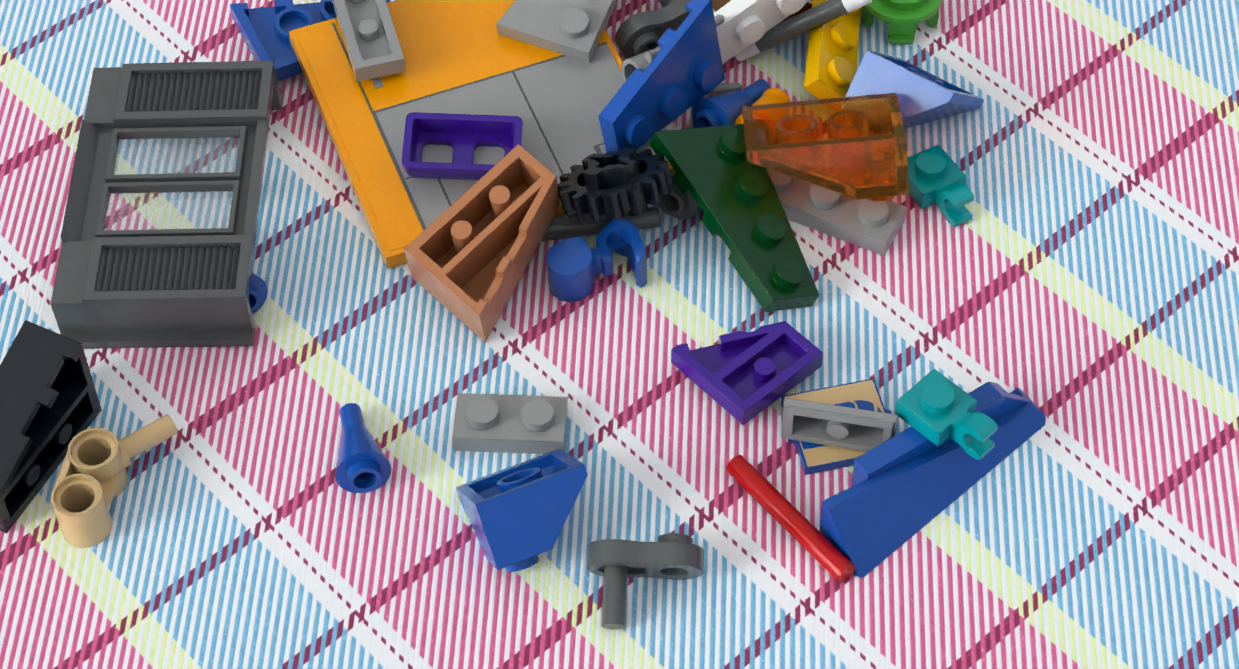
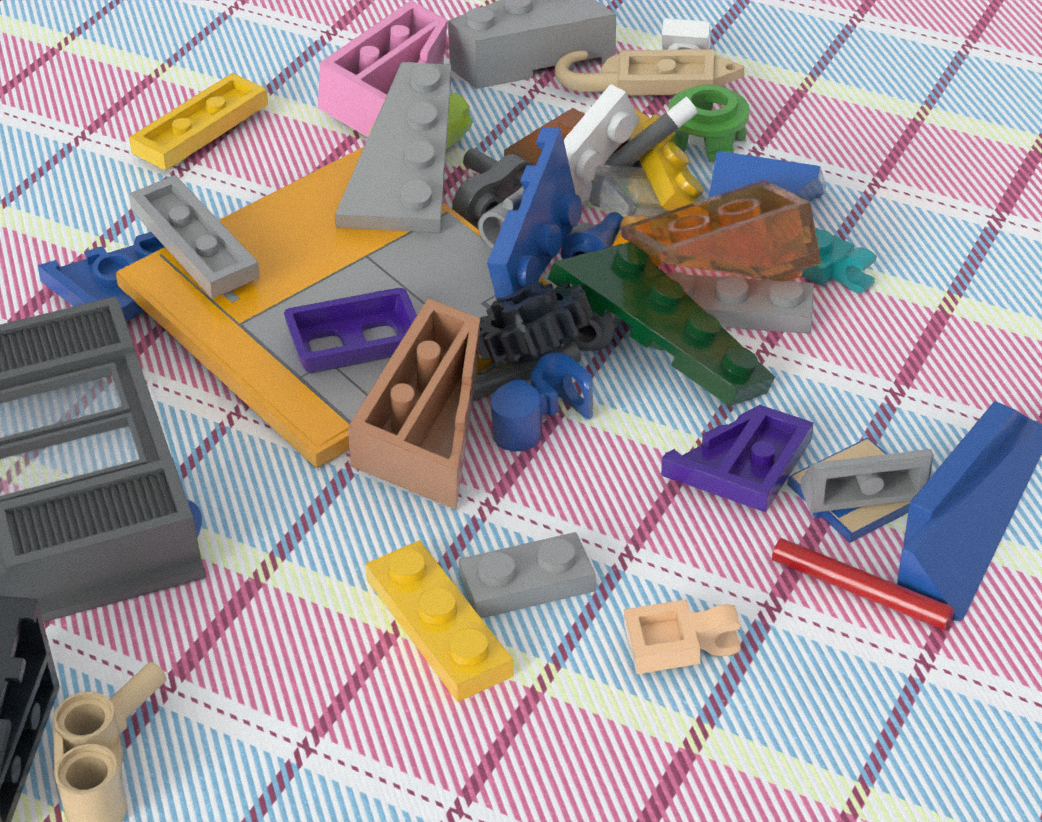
camera: 20 degrees left, 10 degrees down
(360, 460) = (387, 651): blue cone -> none
(419, 443) = (439, 621): none -> yellow plate
(522, 507) = (592, 646): blue slope -> none
(601, 516) = (671, 636): none -> light nougat plate
(616, 559) = (721, 665): dark grey piece -> none
(773, 67) = (624, 191): none -> clear slope
(944, 410) = (975, 434): teal plate -> none

